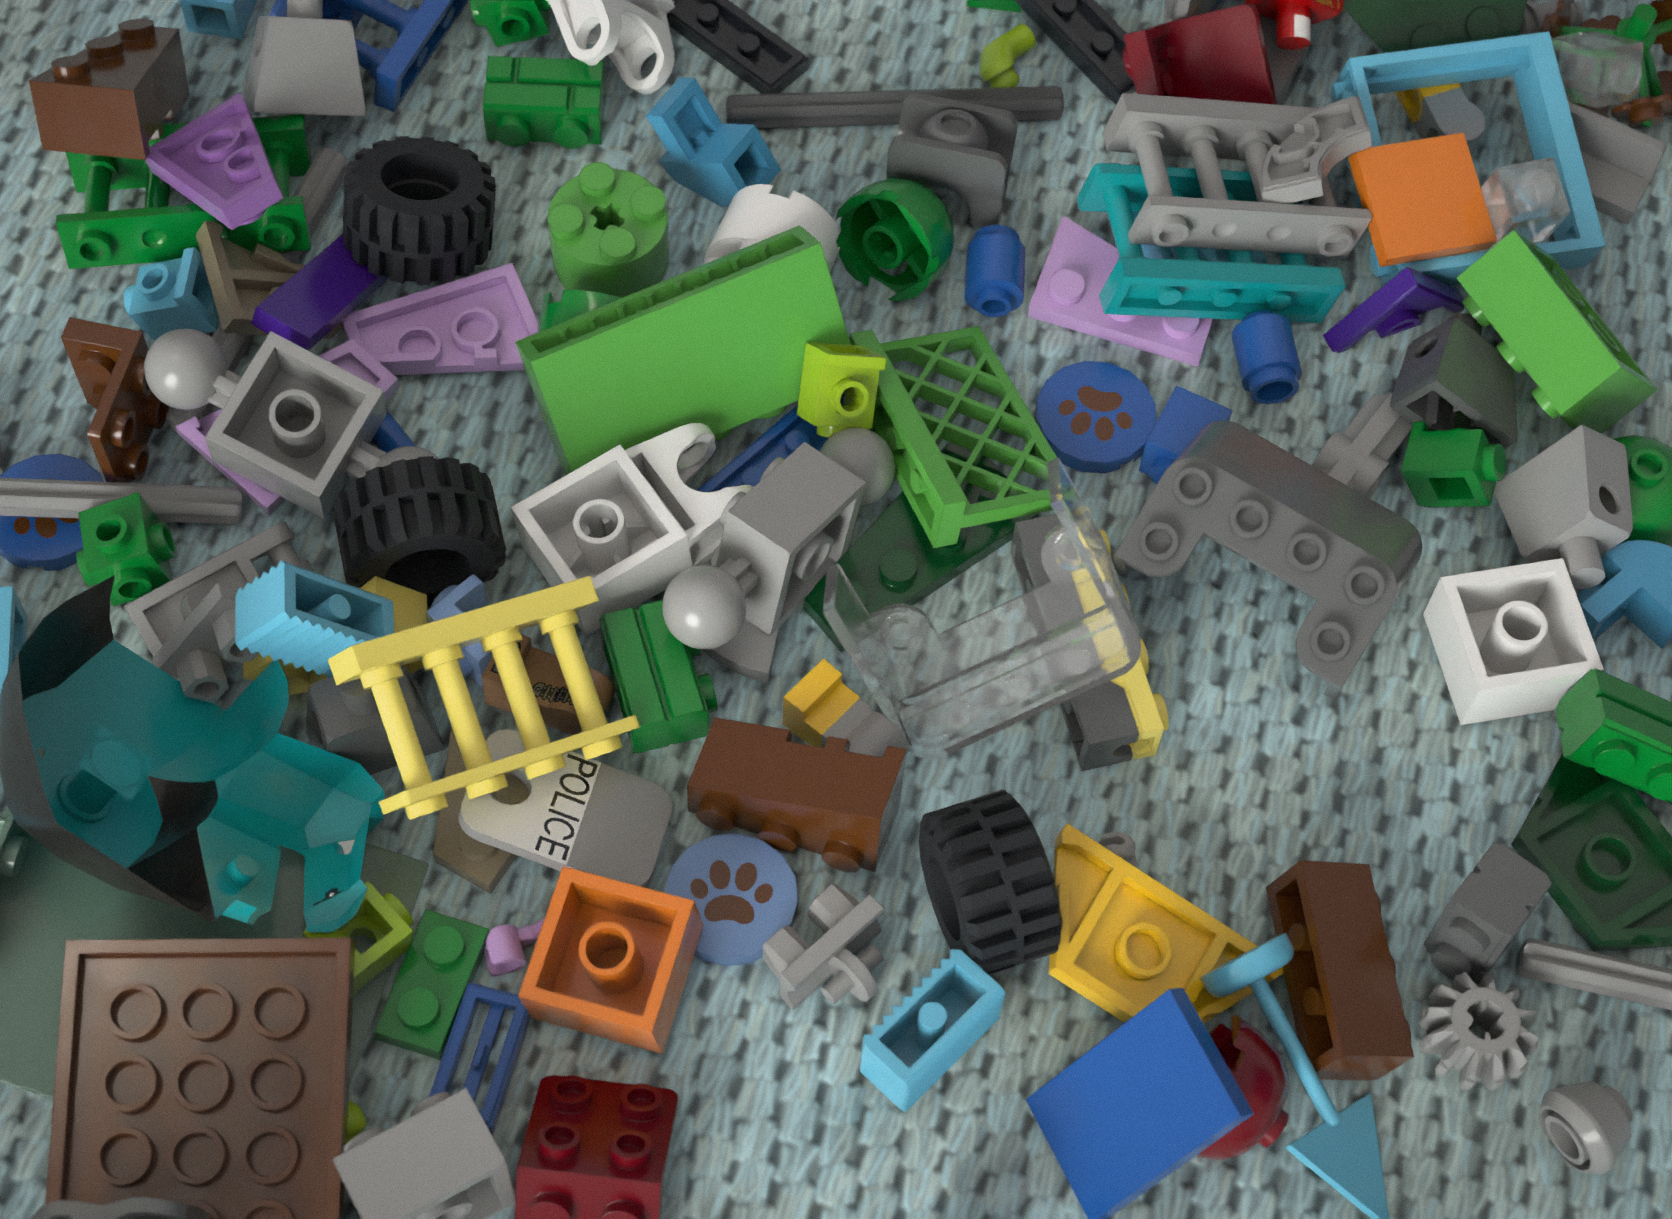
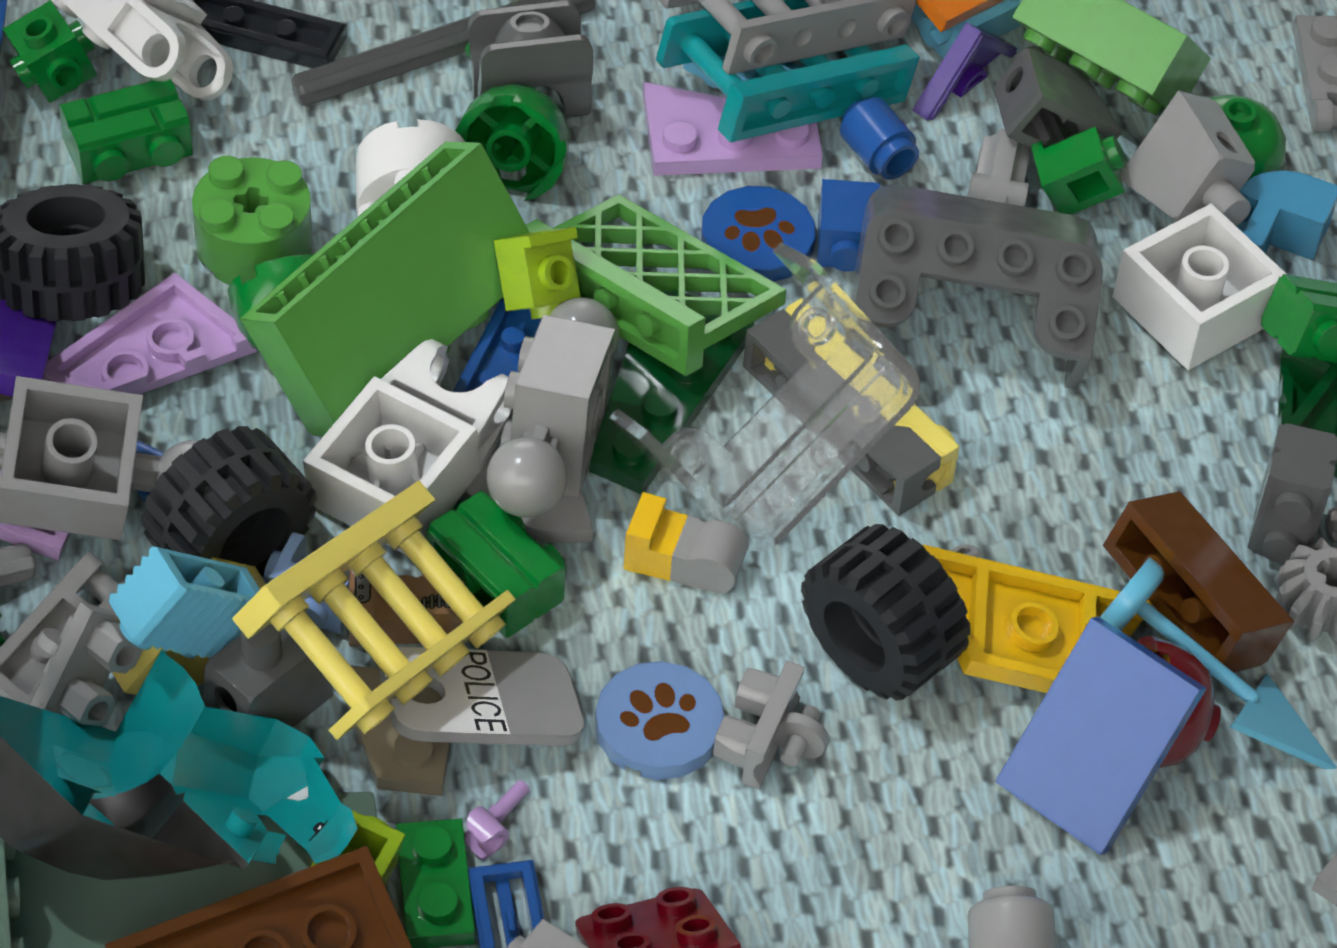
camera: 25 degrees left, 10 degrees down
(612, 959) = (595, 793): orange brick -> none
(705, 153) = (312, 130): dark azure brick -> none
(798, 792) = (679, 607): reddish brown wedge -> none
(930, 1029) = (893, 748): medium azure brick -> none
(995, 271) = (611, 143): blue brick -> none

